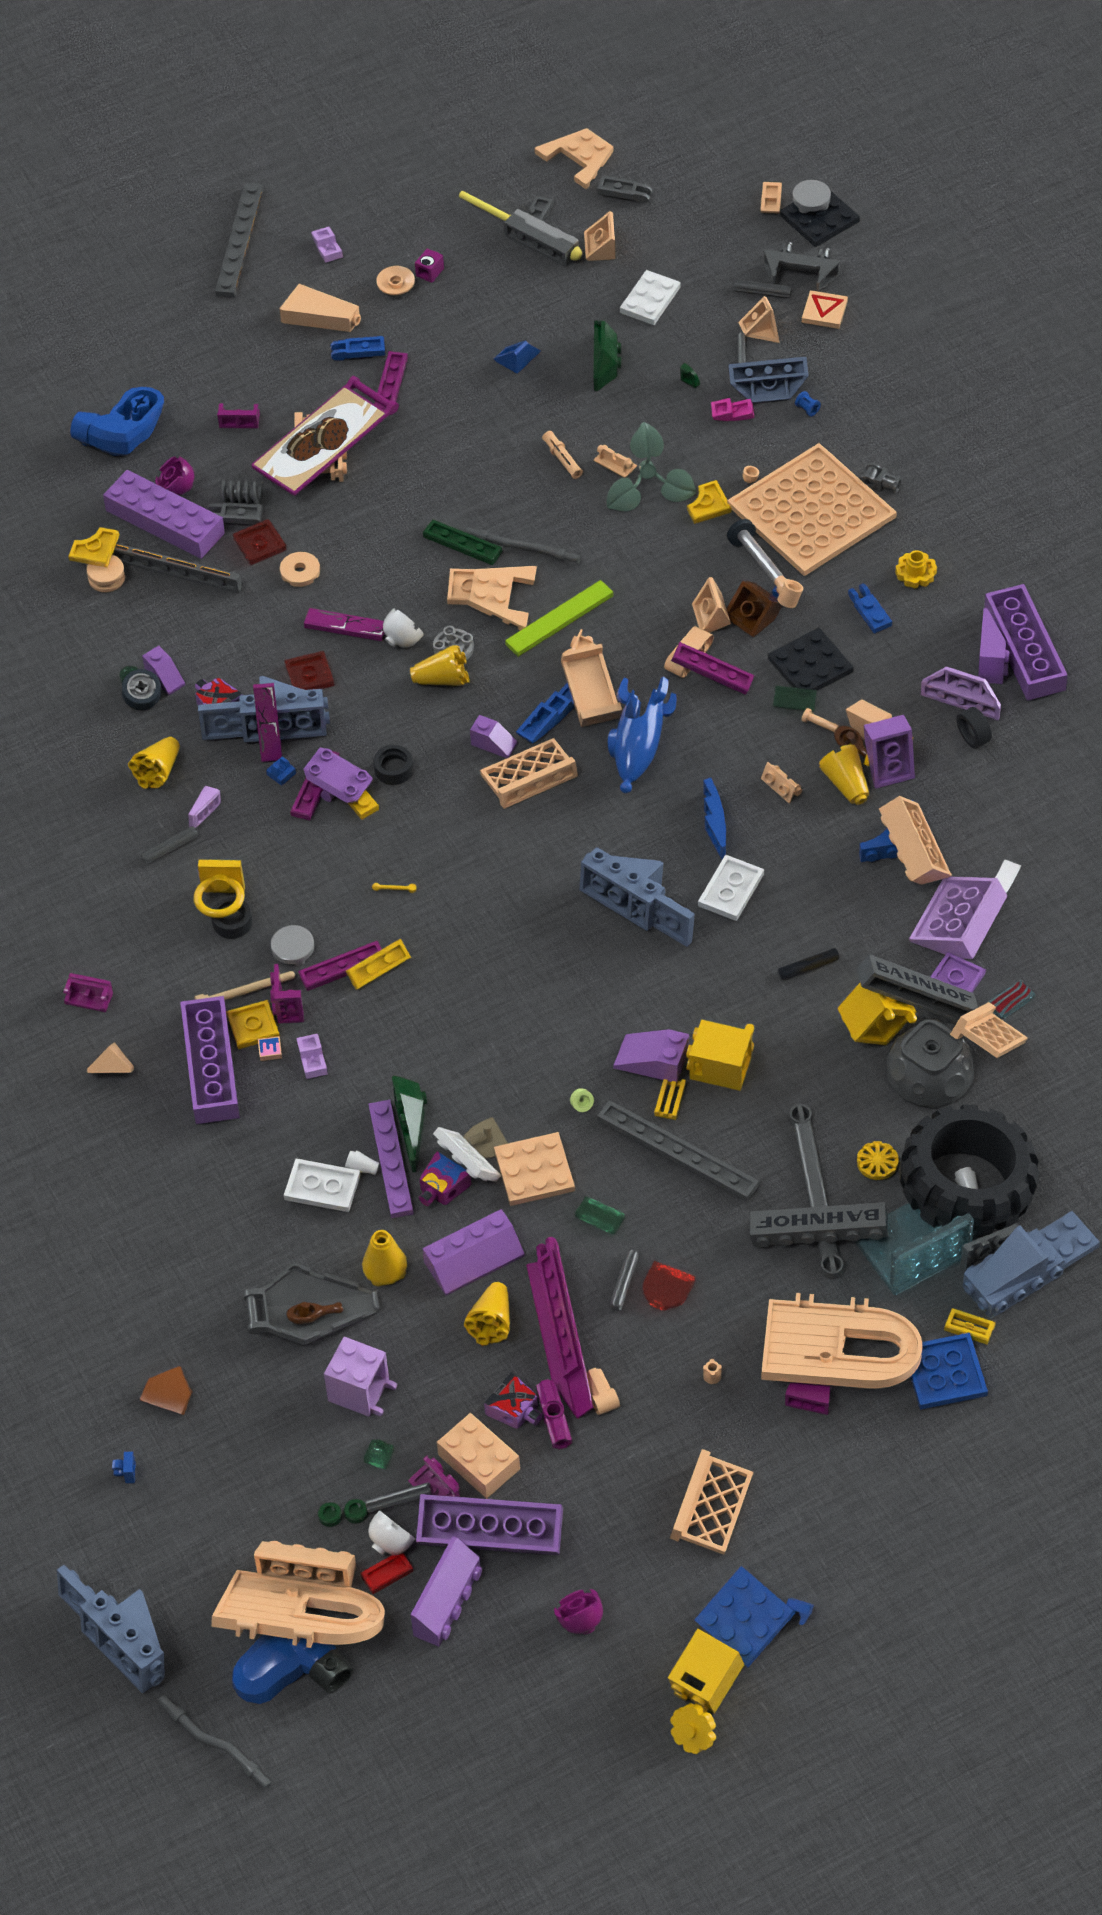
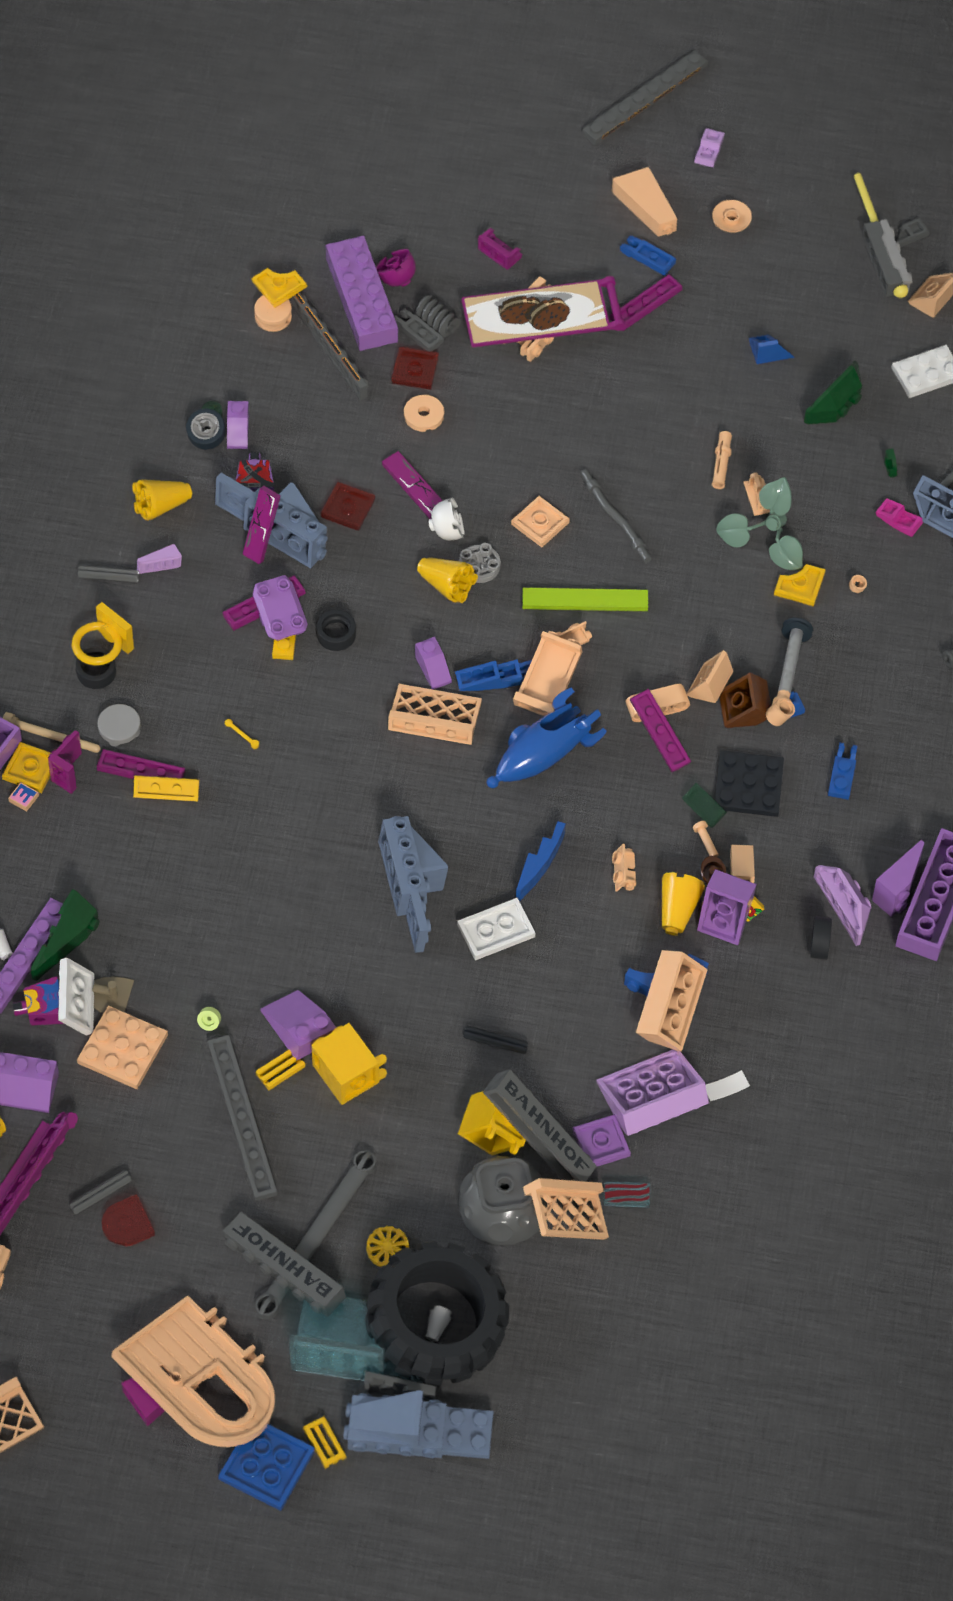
camera: 35 degrees right, 5 degrees up
(125, 426) = (401, 197): blue piece -> none
(281, 771) = (248, 573): blue tile -> none
(312, 1056) = (48, 826): lavender slope -> none
(429, 265) = (772, 221): magenta brick -> none
(462, 542) = (571, 479): dark green tile -> none
(492, 592) = (553, 537): light nougat wing -> none
(600, 1215) = (134, 1124): clear green tile -> none
(712, 1377) = (94, 1325): light nougat hose -> none
(812, 509) = (879, 650): light nougat plate -> none
(916, 569) = (913, 765): yellow plant -> none

